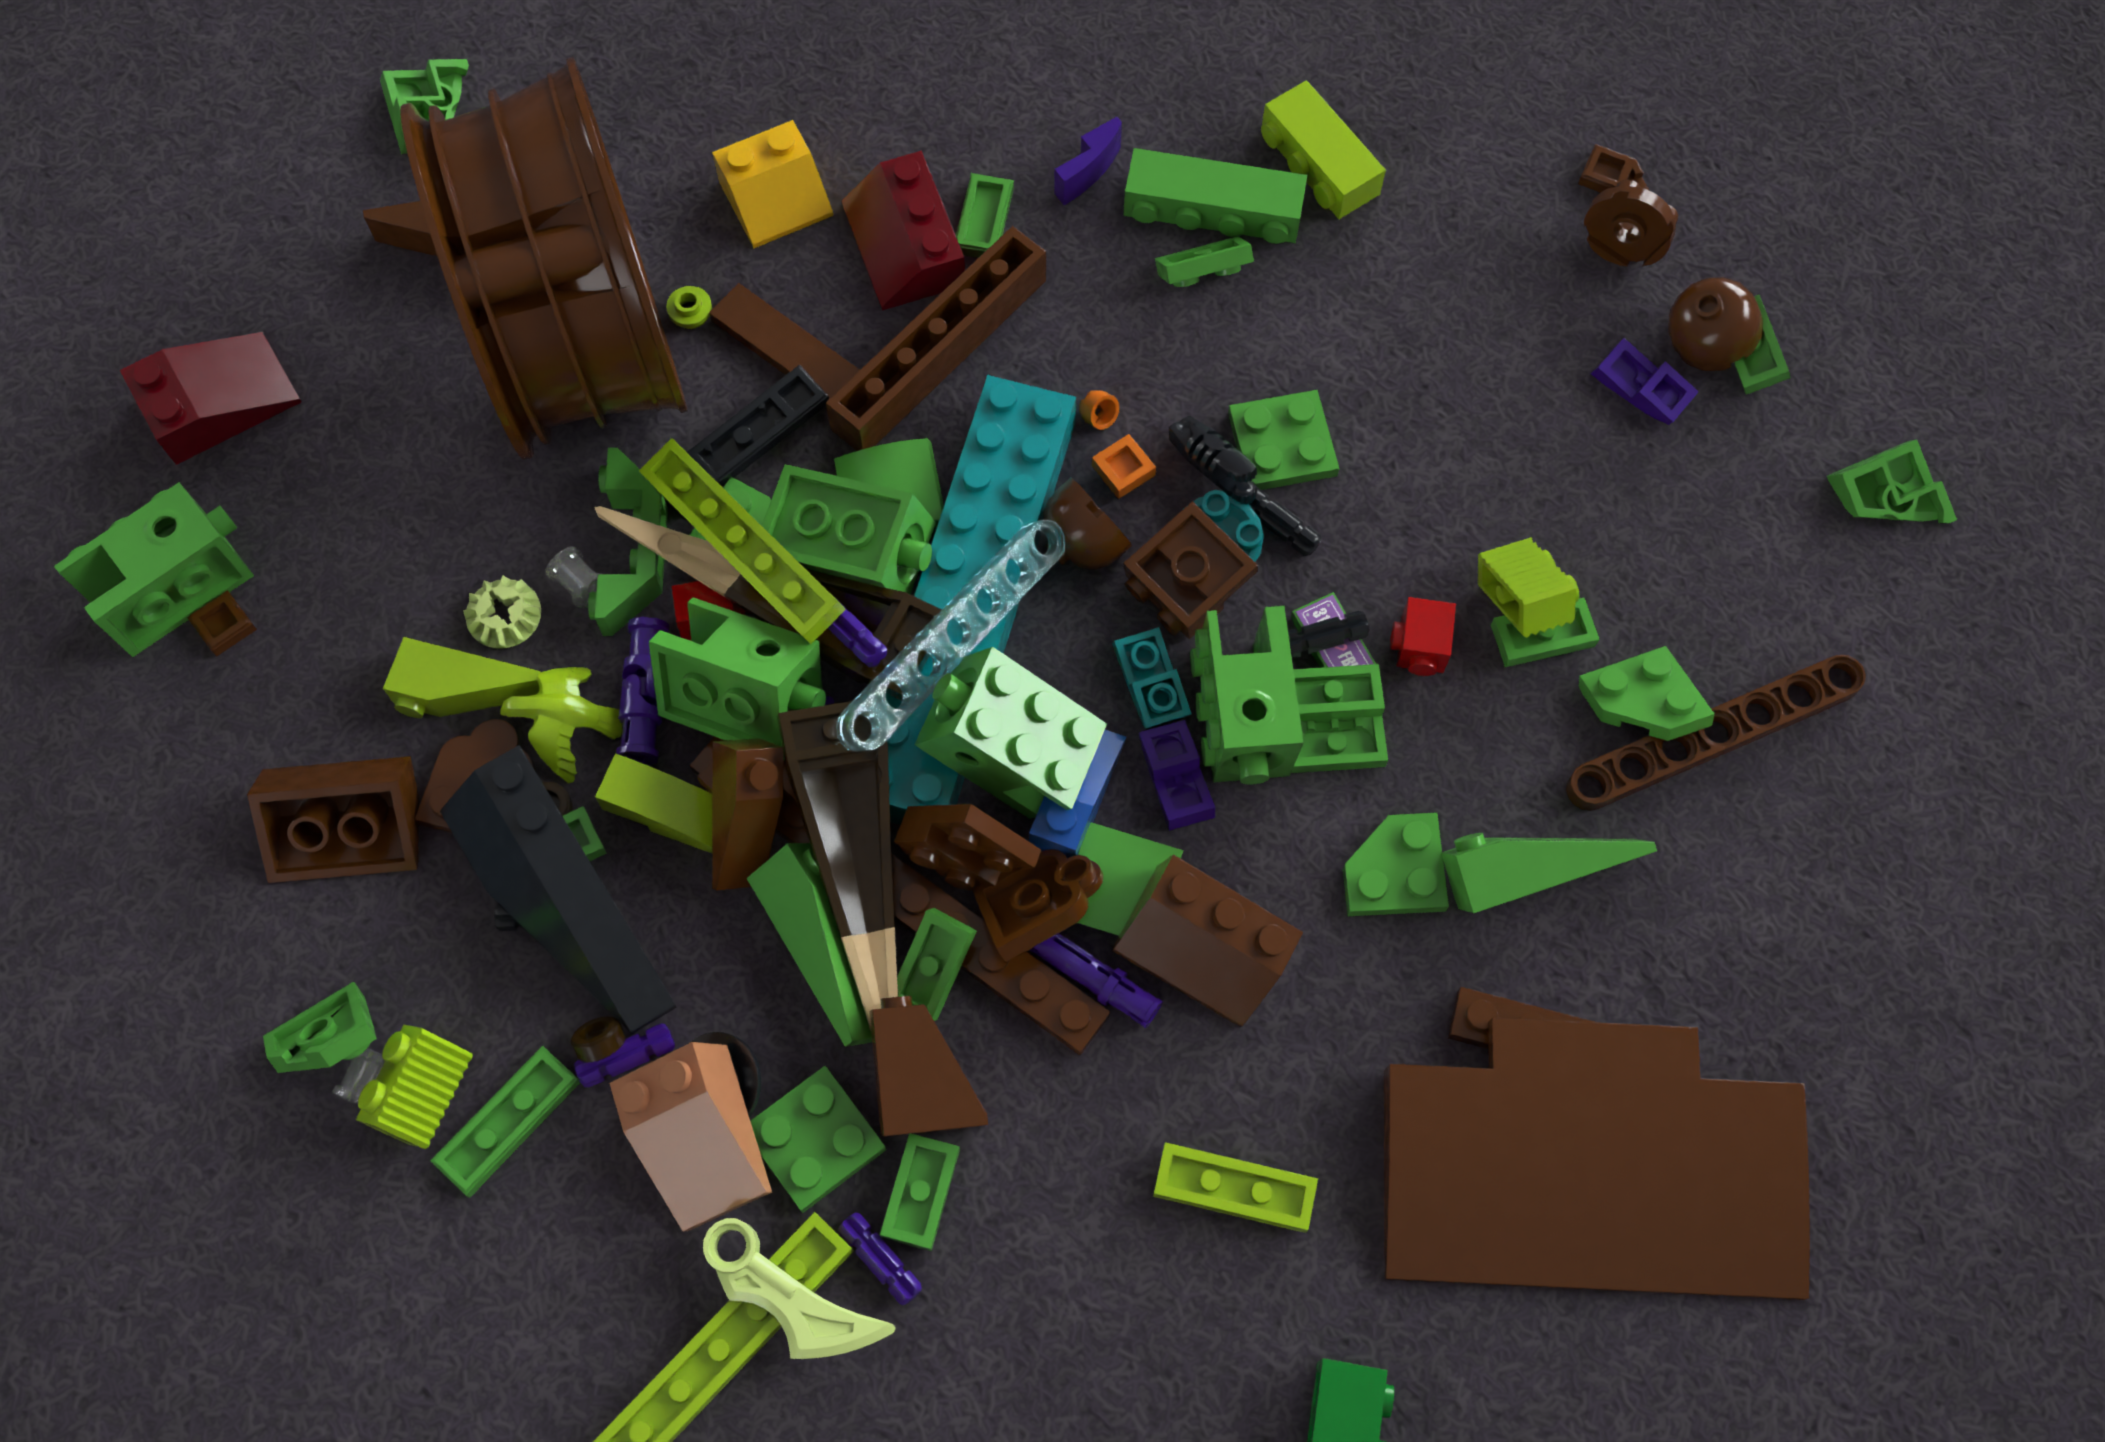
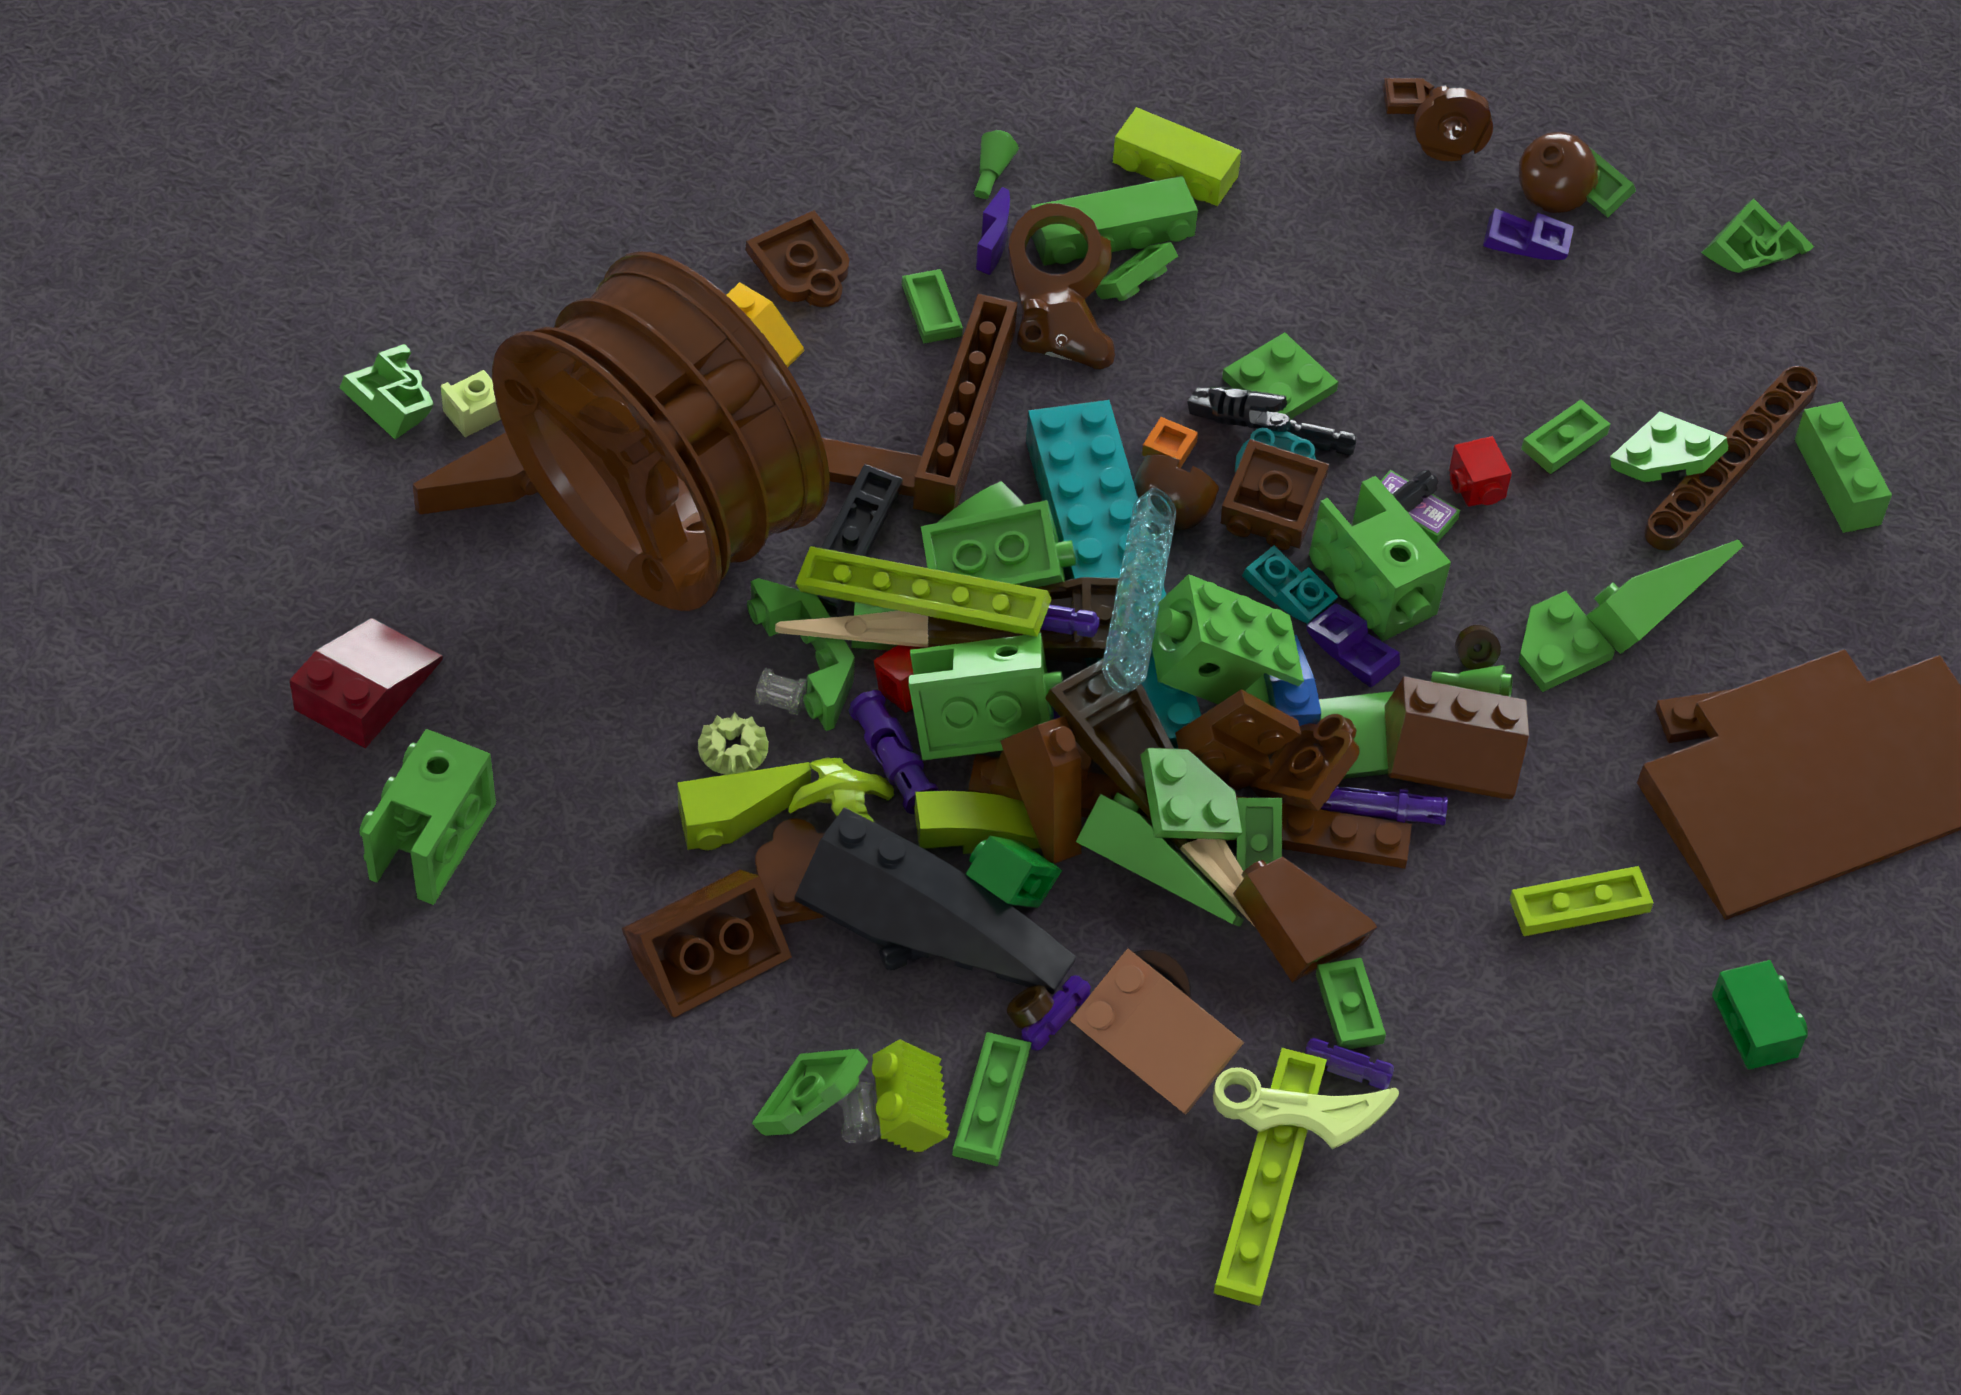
camera: 30 degrees left, 15 degrees down
(222, 623) = (497, 847): reddish brown tile -> none
(656, 886) = (1012, 871): none -> green brick
(815, 1139) = (1249, 1003): bright green plate -> none
(872, 888) = (1188, 797): none -> bright green plate
(885, 114) = (801, 260): none -> reddish brown plate
(903, 232) = (879, 337): dark red slope -> none
(1095, 271) = (1054, 305): none -> reddish brown animal
(1105, 402) = (1124, 409): orange hinge -> none
(1144, 76) = (995, 154): none -> bright green cone
(1286, 885) = (1485, 679): none -> bright green cone
(1300, 839) = (1477, 647): none -> dark brown tile
(1341, 718) = (1461, 541): bright green slope -> none
(1528, 586) = (1536, 404): lime brick -> none
(1830, 801) = (1842, 467): none -> bright green brick

